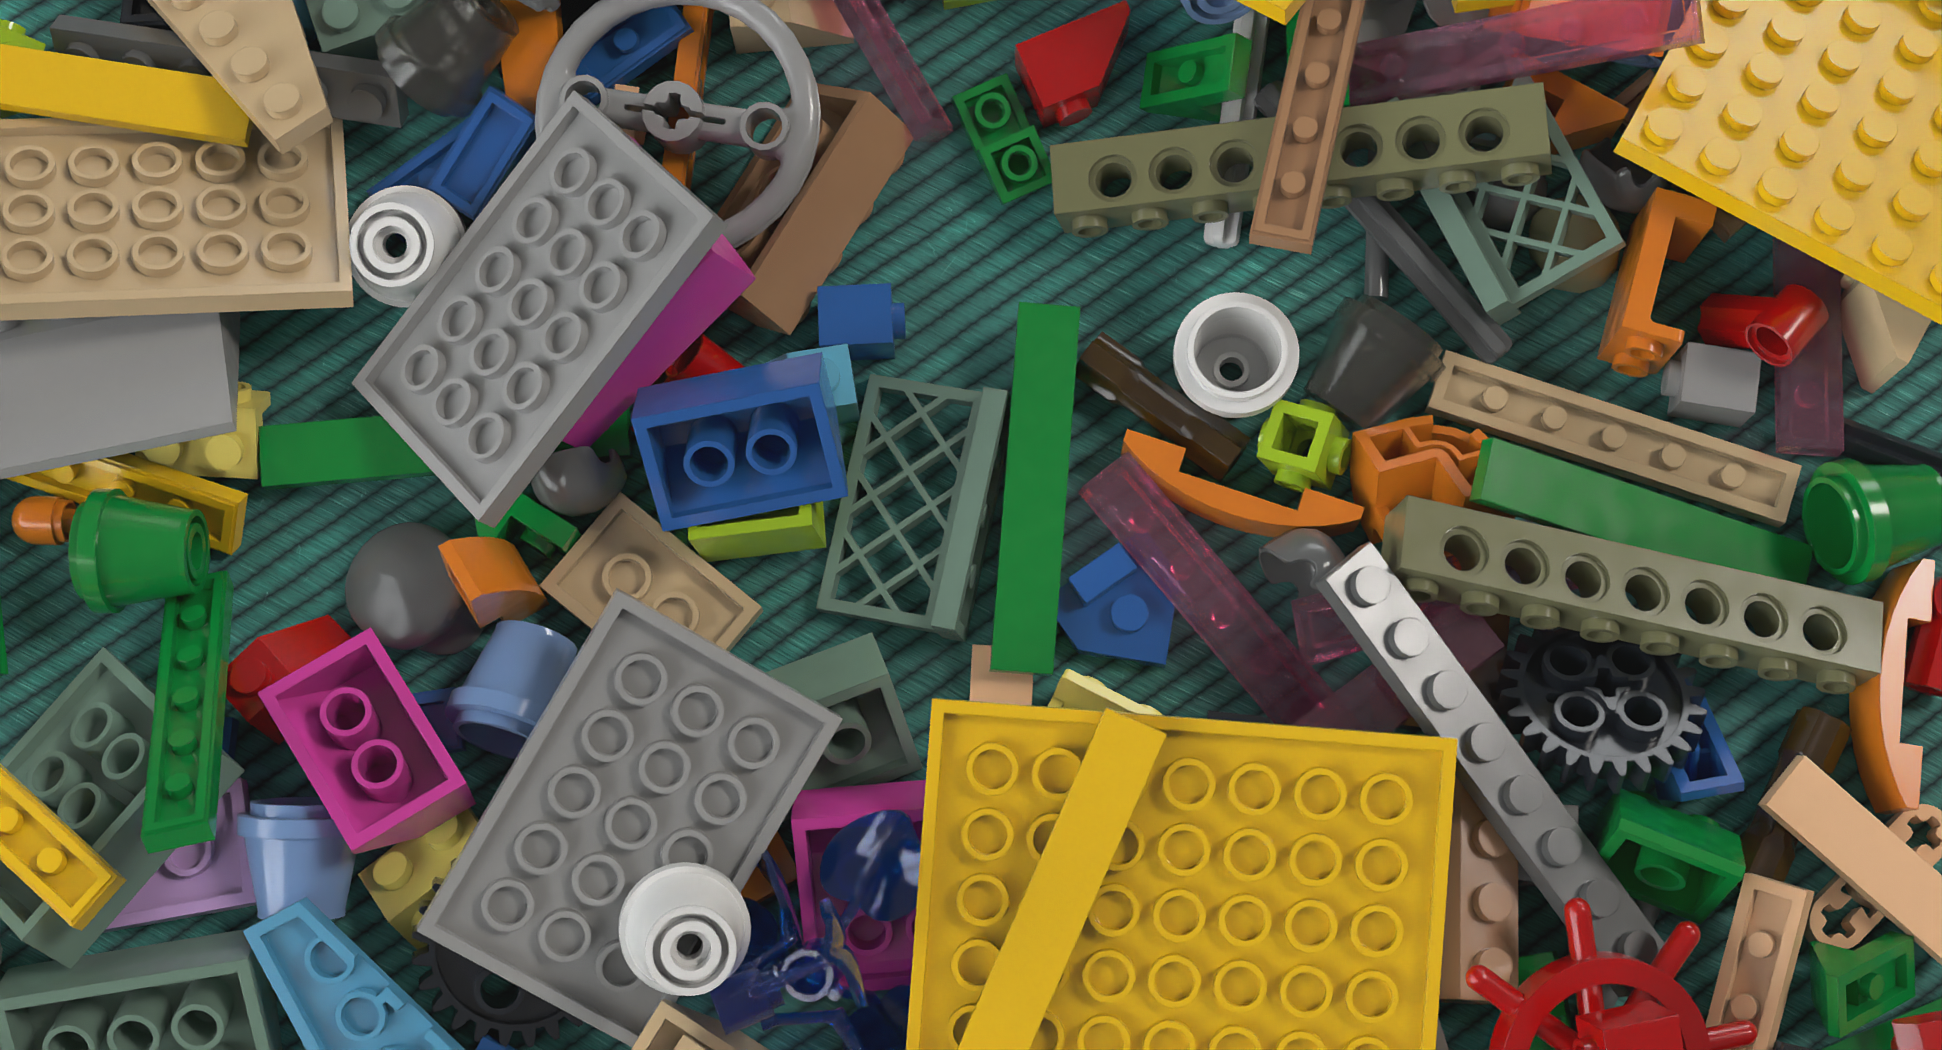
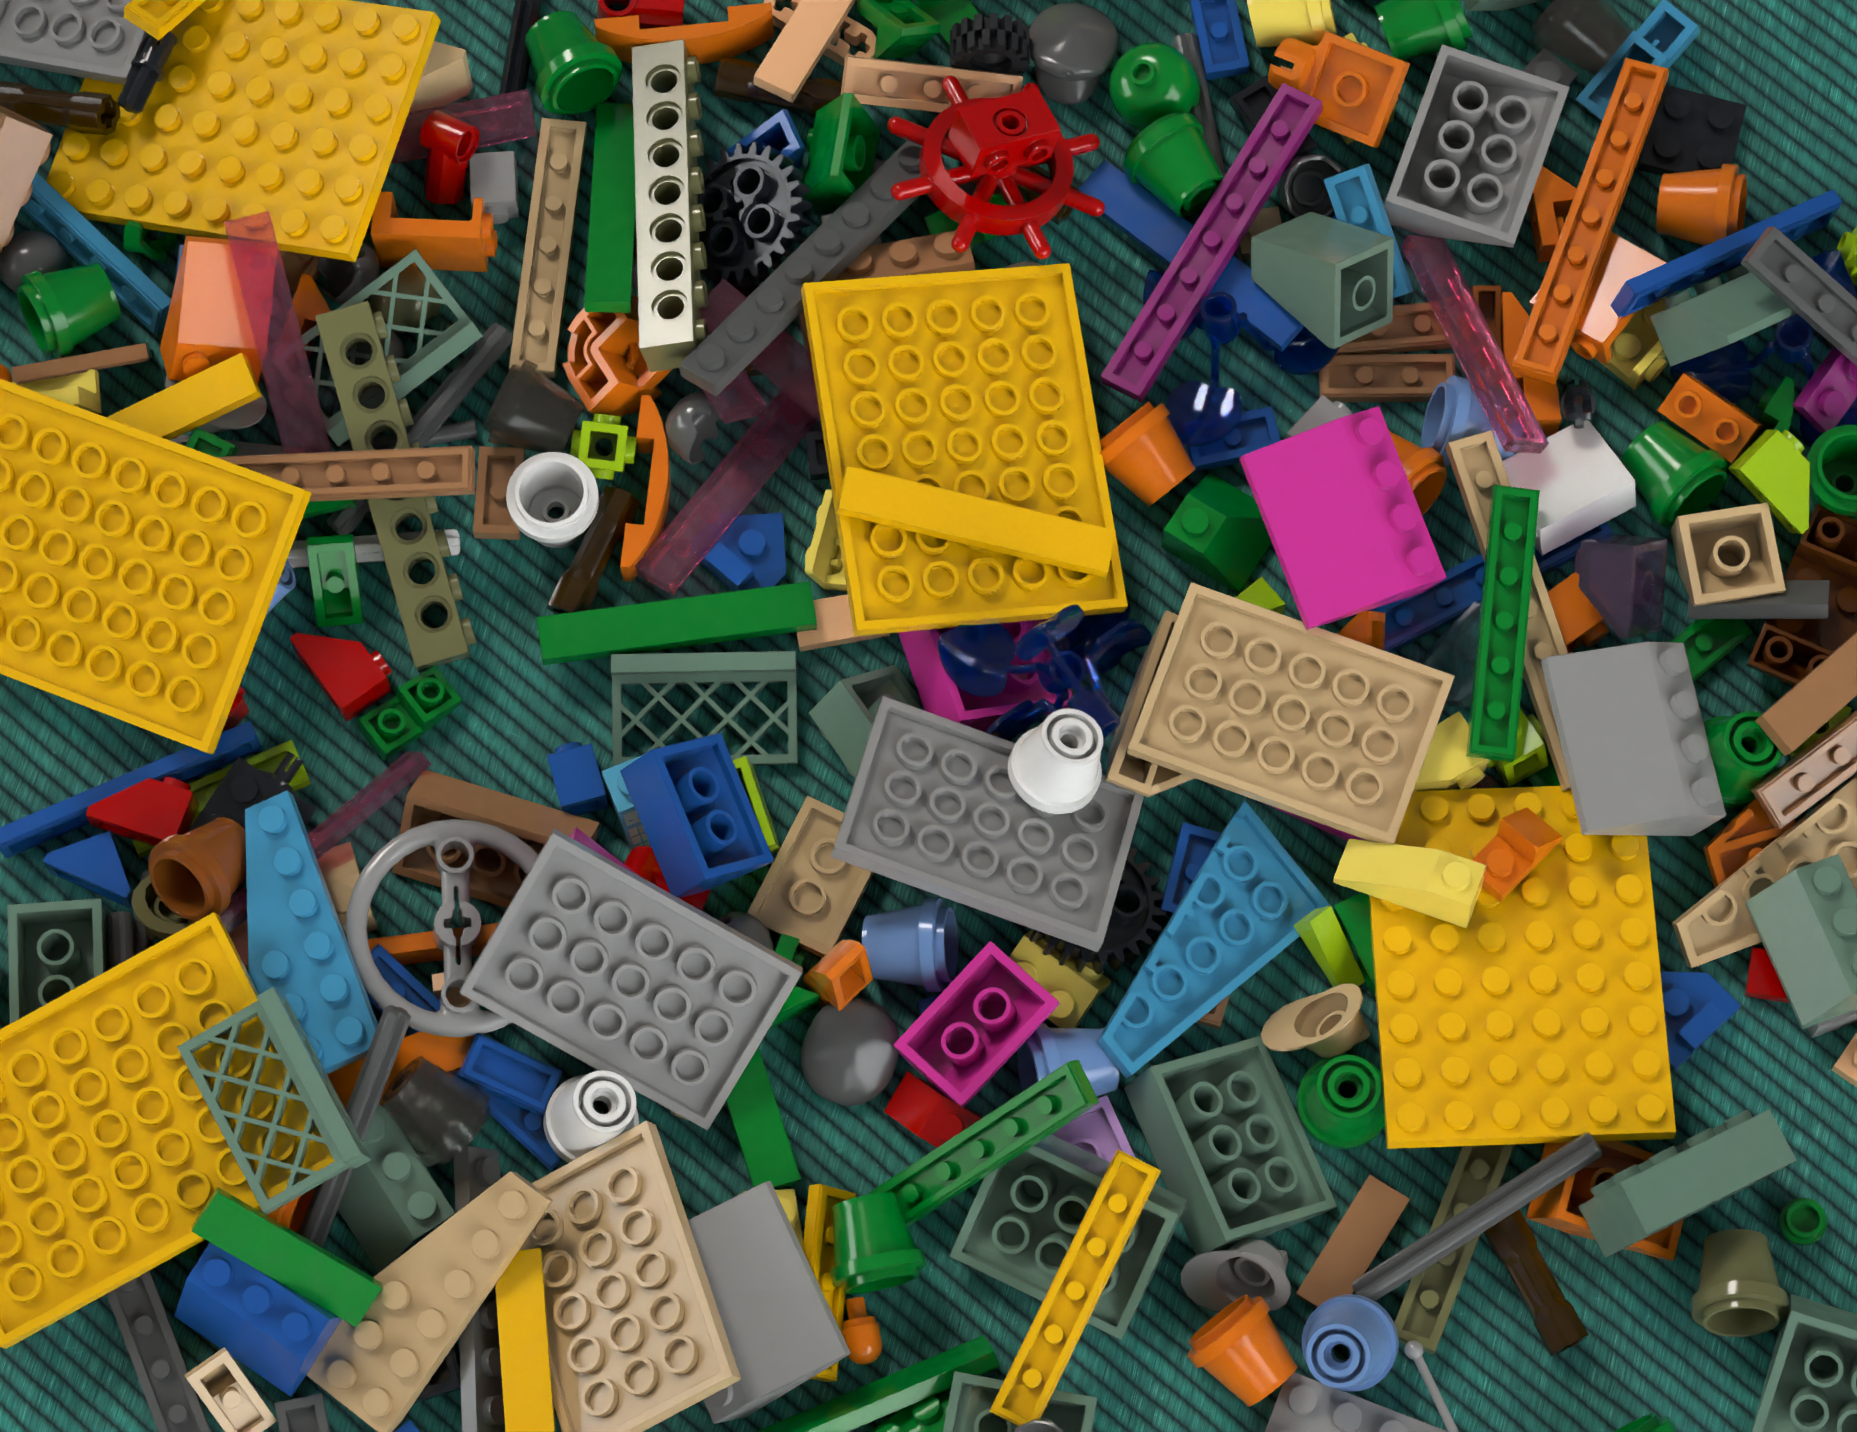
camera: 105 degrees left, 5 degrees down
(1304, 303) = (491, 509): none -> medium nougat plate

